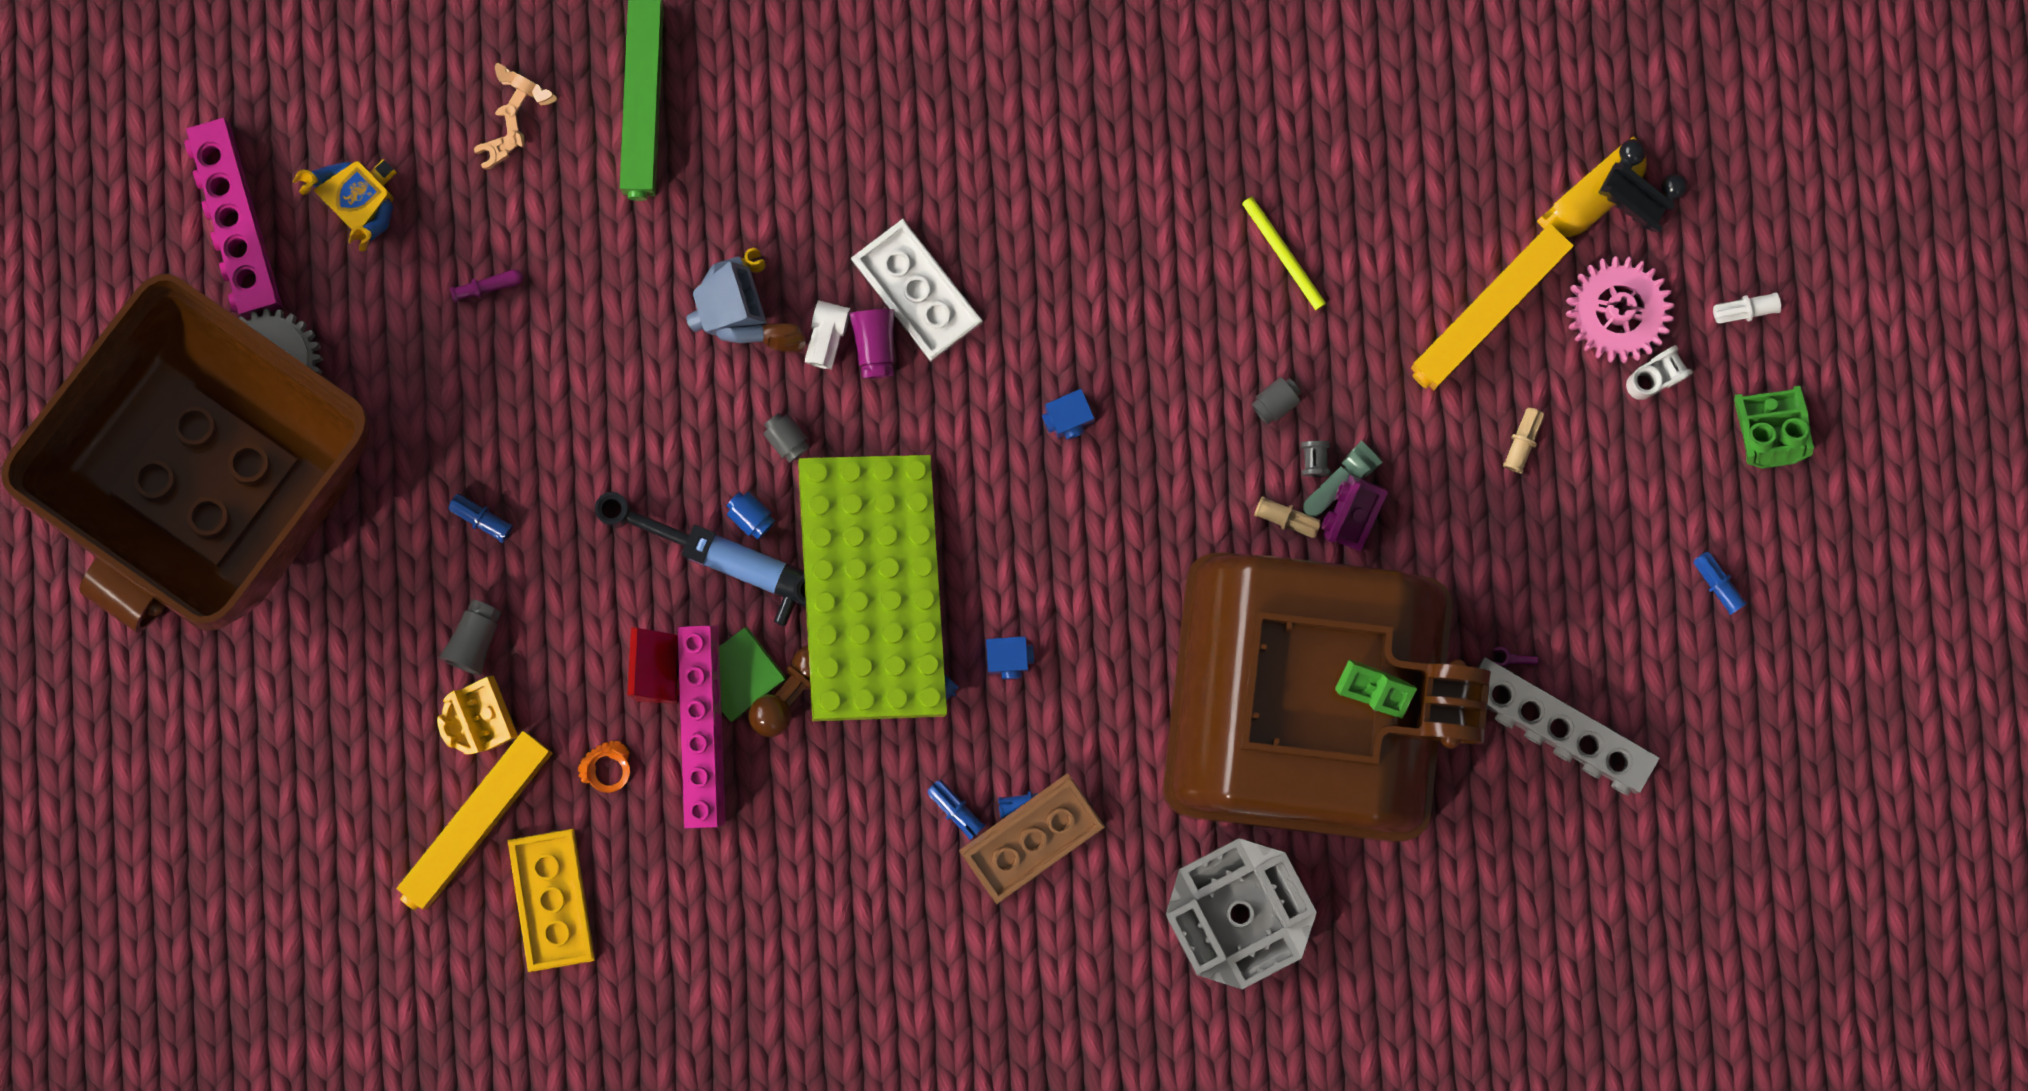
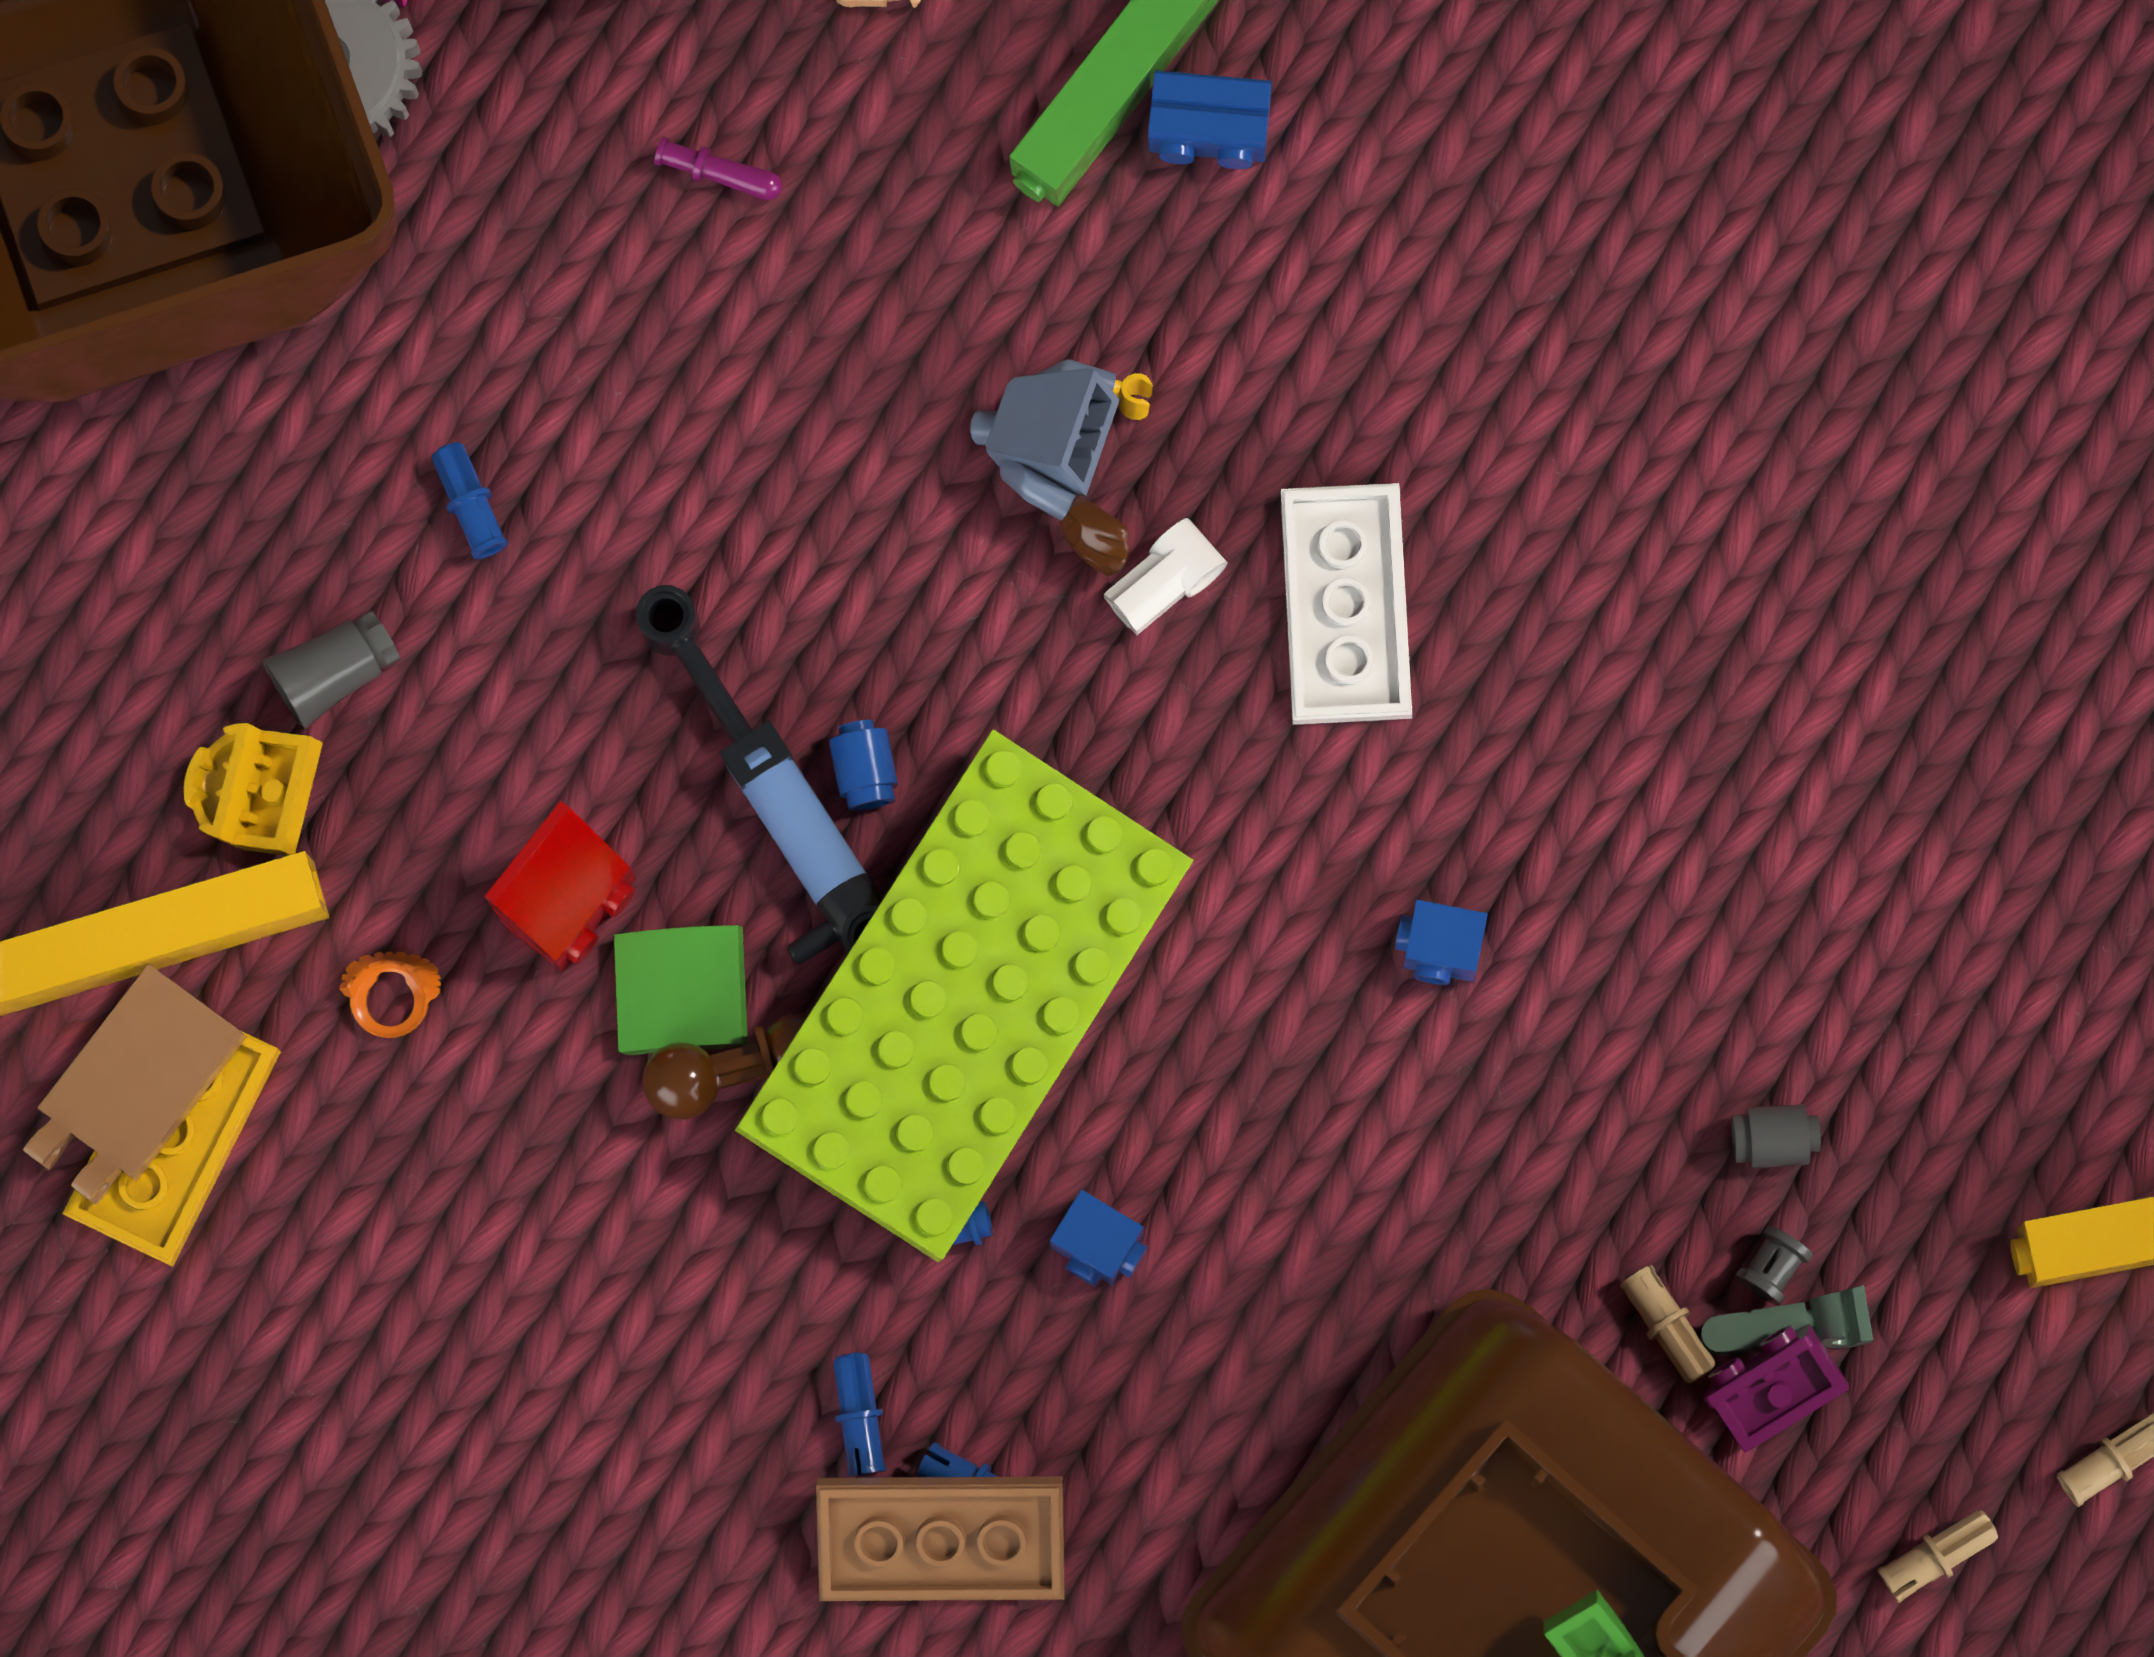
camera: 40 degrees right, 5 degrees down
(519, 889) = (134, 1082): none -> medium nougat tile
(698, 108) = (1209, 118): none -> blue brick
(701, 726) = (568, 1026): dark pink brick -> none
(786, 437) = (998, 687): dark grey brick -> none
(874, 342) = (1228, 635): magenta plant -> none
(1284, 253) = (1941, 923): neon yellow bar -> none
(1475, 537) = (1938, 1555): none -> tan axle

